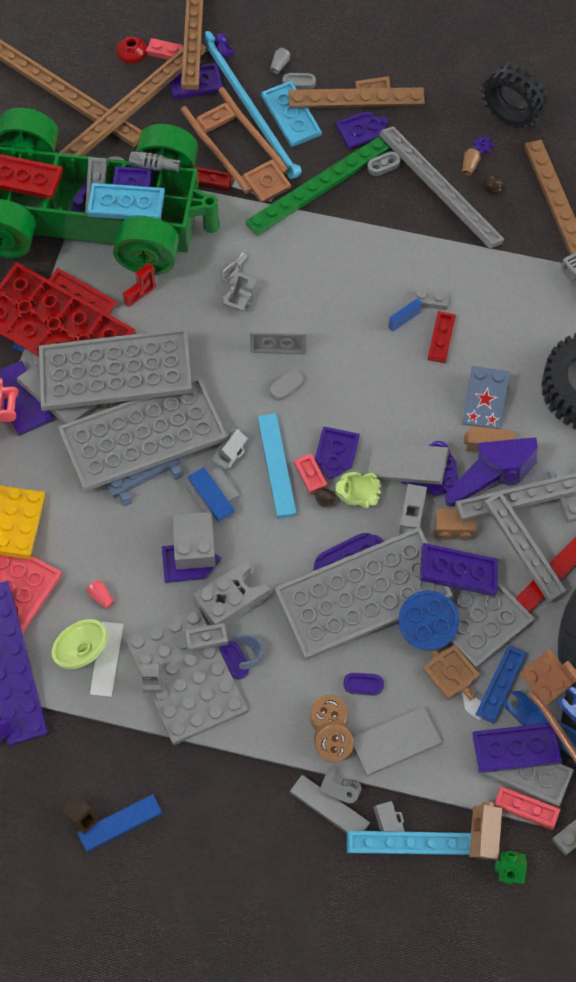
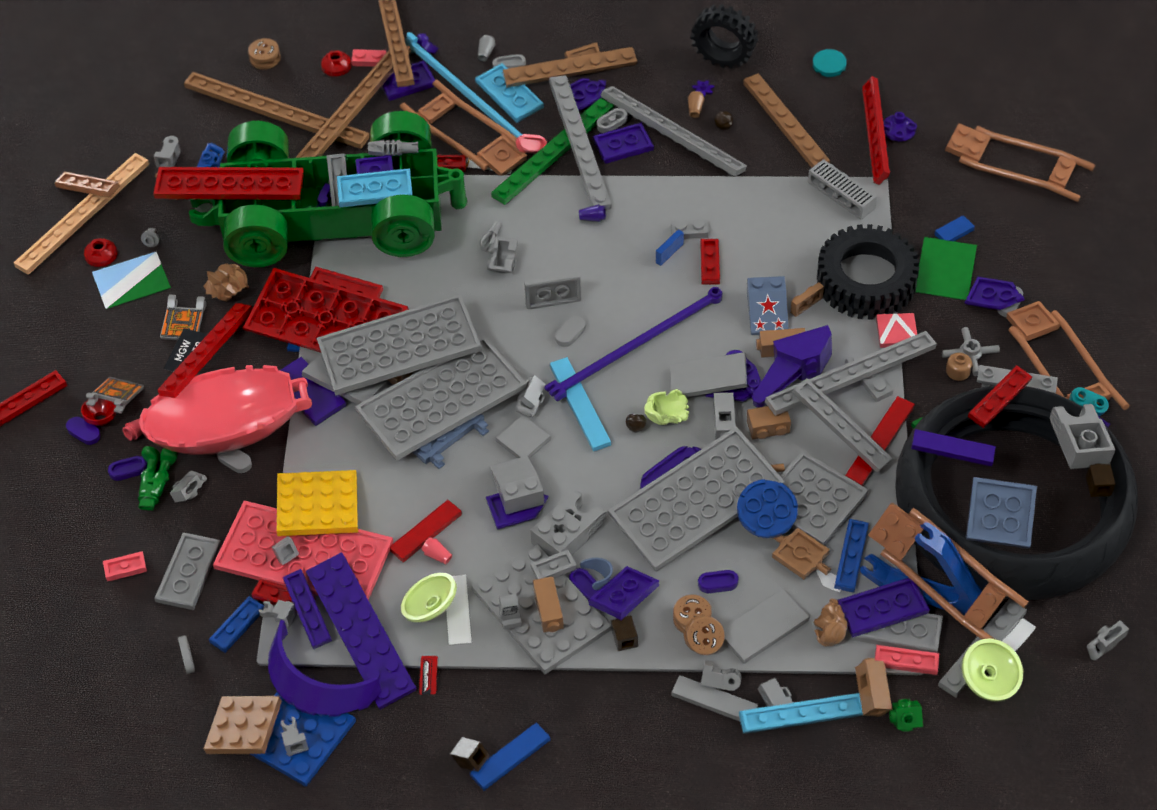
camera: 10 degrees left, 10 degrees down
(63, 721) = (428, 675): none -> sticker
(64, 26) = (264, 53): none -> medium nougat head
(95, 569) = (427, 528): none -> red tile
(144, 284) = (406, 266): red tile -> none
(191, 677) = (548, 604): none -> medium nougat brick
(211, 494) = (523, 440): blue tile -> none
(258, 720) = (624, 633): none -> dark brown brick
(260, 446) = (559, 391): none -> dark purple hinge
(268, 678) = (623, 592): none -> dark purple tile
(297, 174) = (530, 143): none -> coral tile
(310, 473) = (615, 404): coral plate -> none
(336, 451) = (635, 380): dark purple tile -> none
(340, 262) = (593, 213): none -> dark purple cone
(345, 184) = (579, 142): none -> light grey plate
(389, 190) = (623, 143): none -> dark purple tile
(459, 569) = (784, 457): dark purple tile -> none
(463, 756) = (832, 623): none -> medium nougat hair
(526, 398) = (807, 299): none -> medium nougat plate

